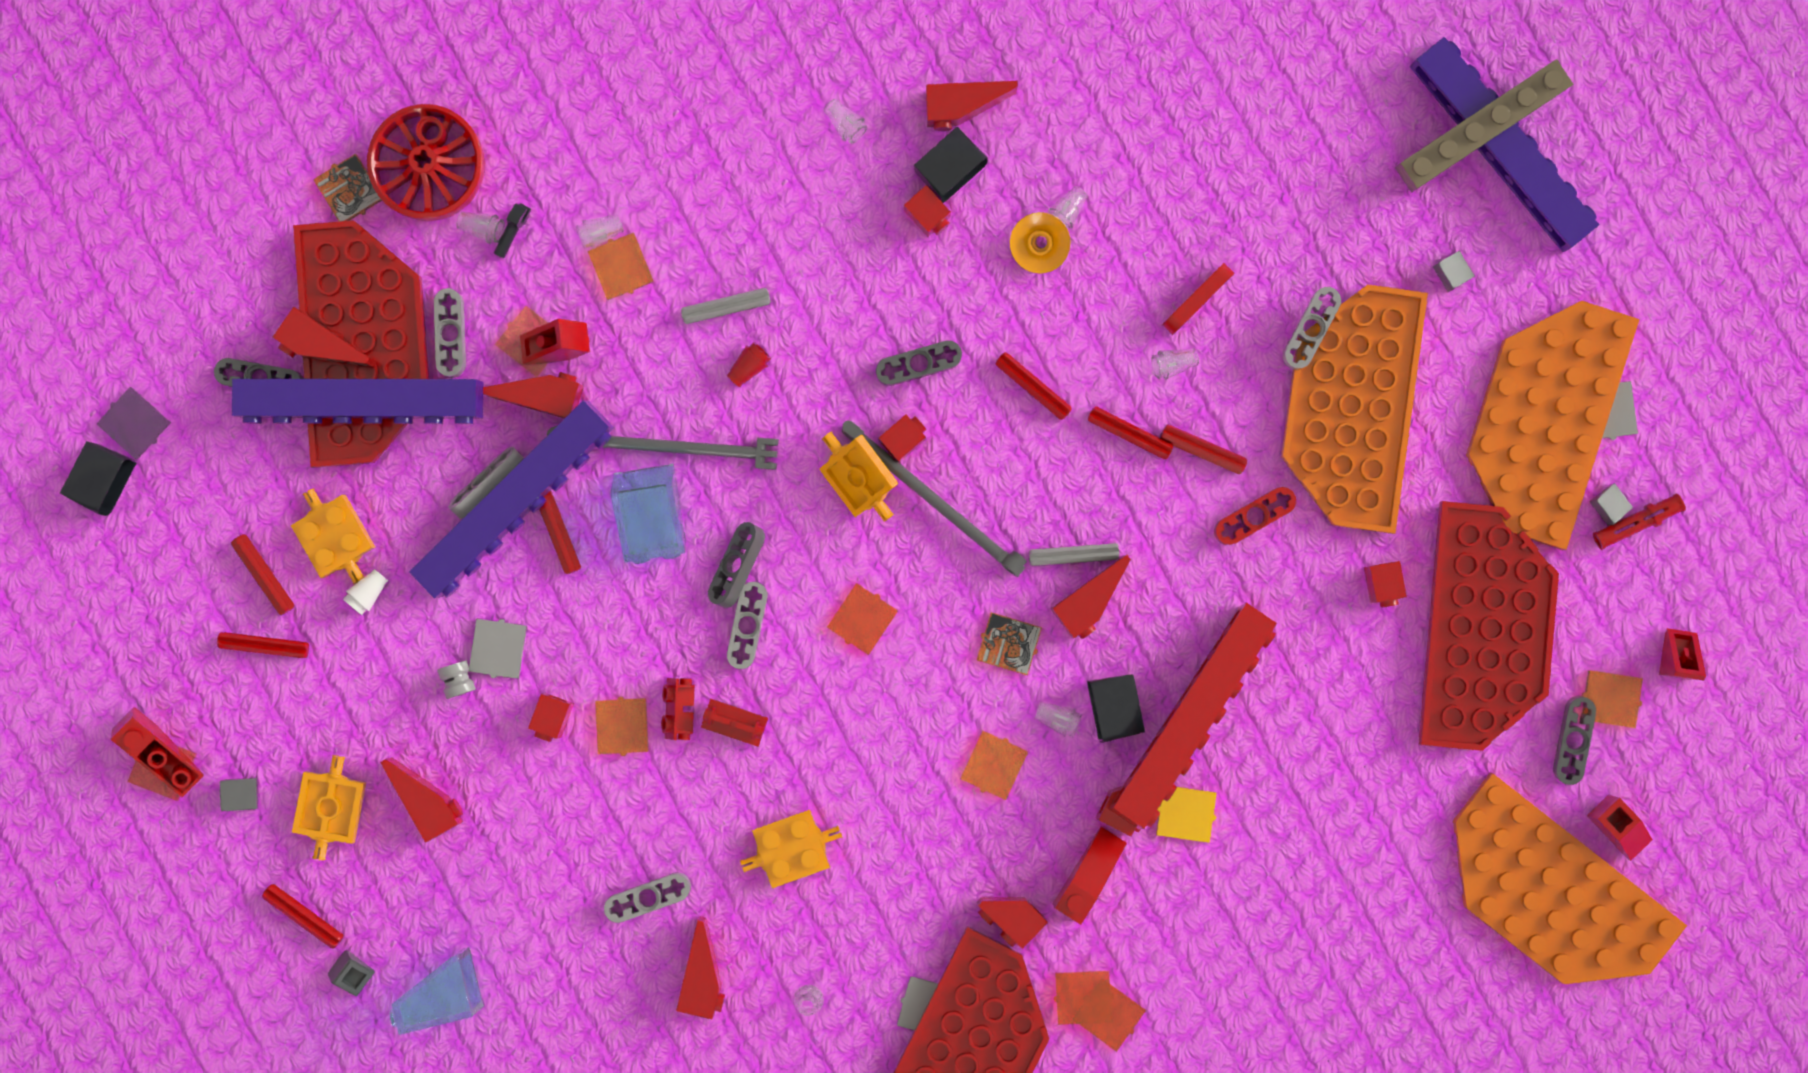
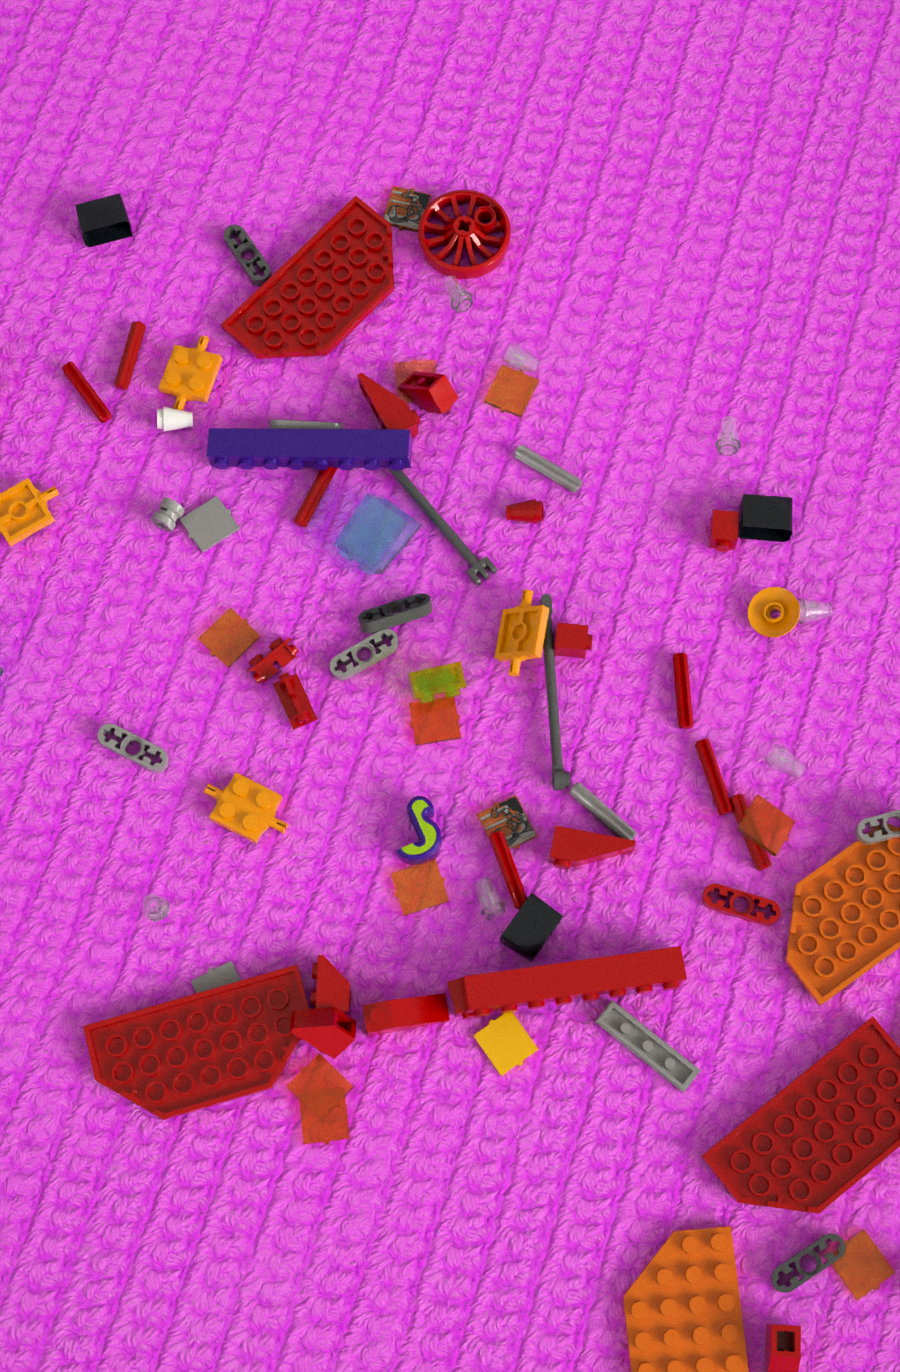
camera: 50 degrees right, 15 degrees down
(133, 423) = (155, 214): clear purple piece -> none
(311, 340) = (297, 260): red slope -> none
(357, 398) = (287, 311): dark purple brick -> none
(426, 804) = (72, 568): red slope -> none
(456, 310) = (377, 322): light grey beam -> none
(516, 219) = (482, 308): black bar -> none
(550, 717) = (195, 588): red brick -> none
(701, 982) = (108, 827): red slope -> none
(833, 589) = (436, 681): none -> clear neon green brick
(924, 351) = (647, 612): dark grey beam -> none
(954, 717) = (428, 832): none -> dark purple animal
(957, 102) = (812, 491): red slope -> none
(1044, 956) = (324, 1029): none -> red slope
(1049, 679) = (508, 868): none -> red axle
(1198, 298) = (839, 739): red beam -> none
(1211, 431) = (766, 825): none -> clear orange piece
(1295, 703) = (647, 1046): none -> light grey tile
(1385, 583) = (782, 1029): red brick -> none

